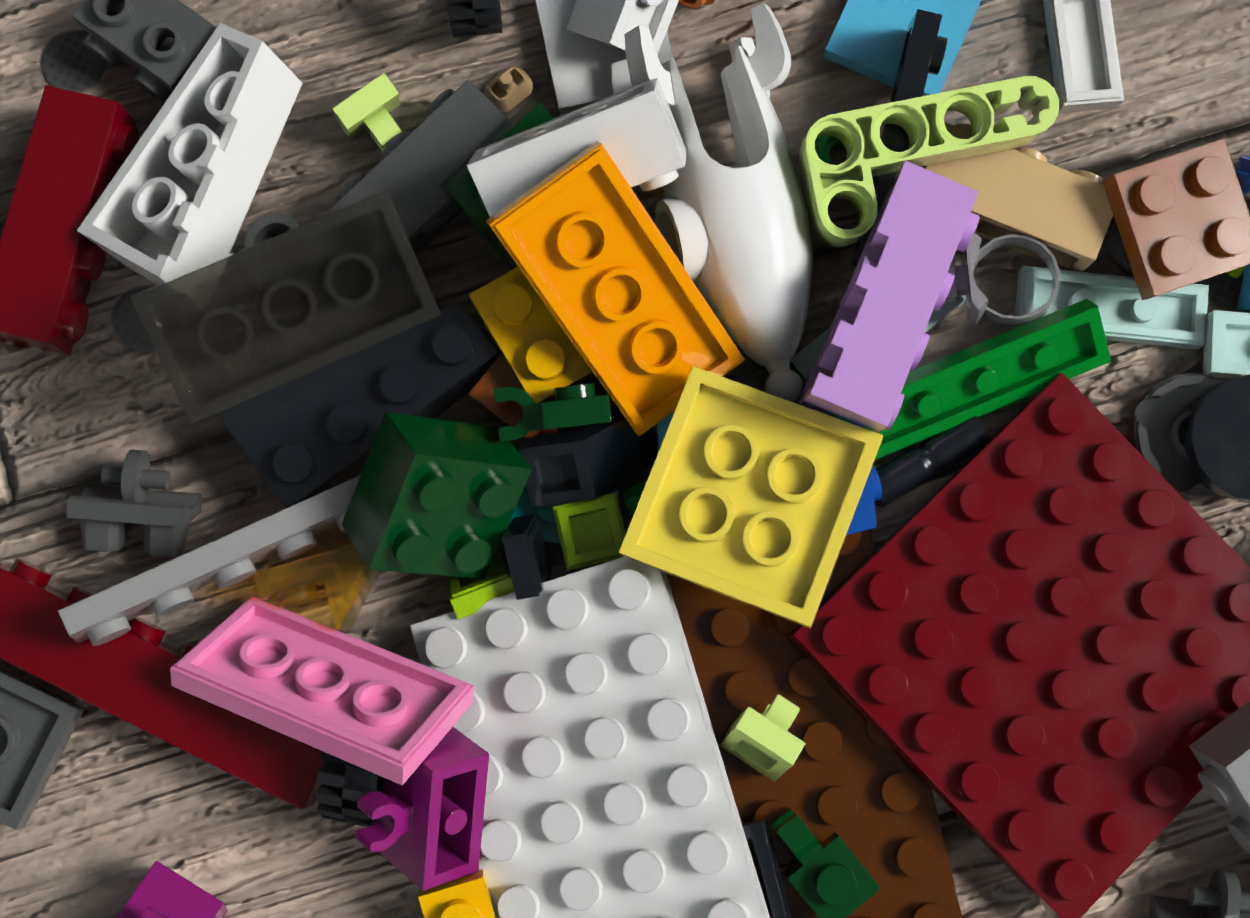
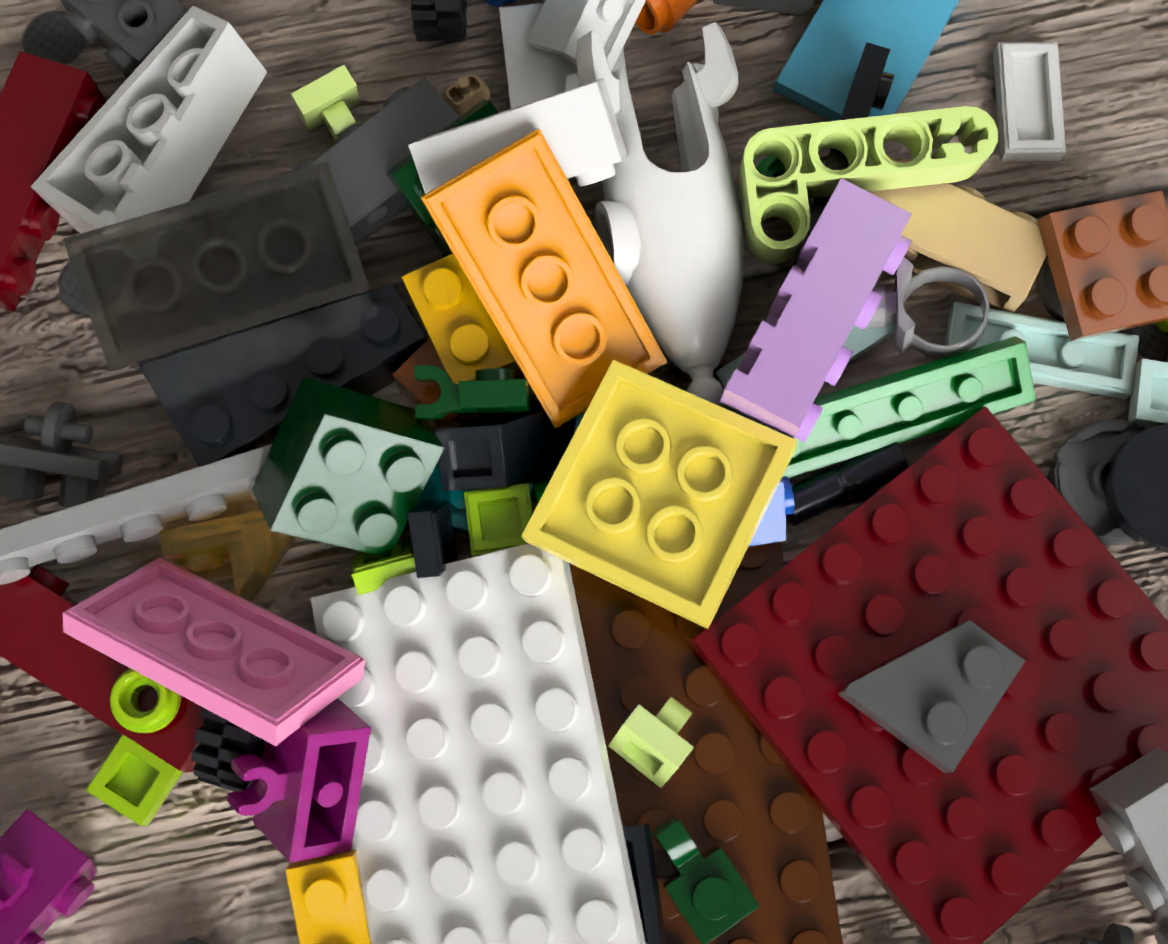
camera: 10 degrees right, 5 degrees down
(247, 761) = (125, 703): none -> lime plate
(254, 822) = (134, 781): none -> lime plate
(1038, 666) = (938, 692): none -> dark grey wing

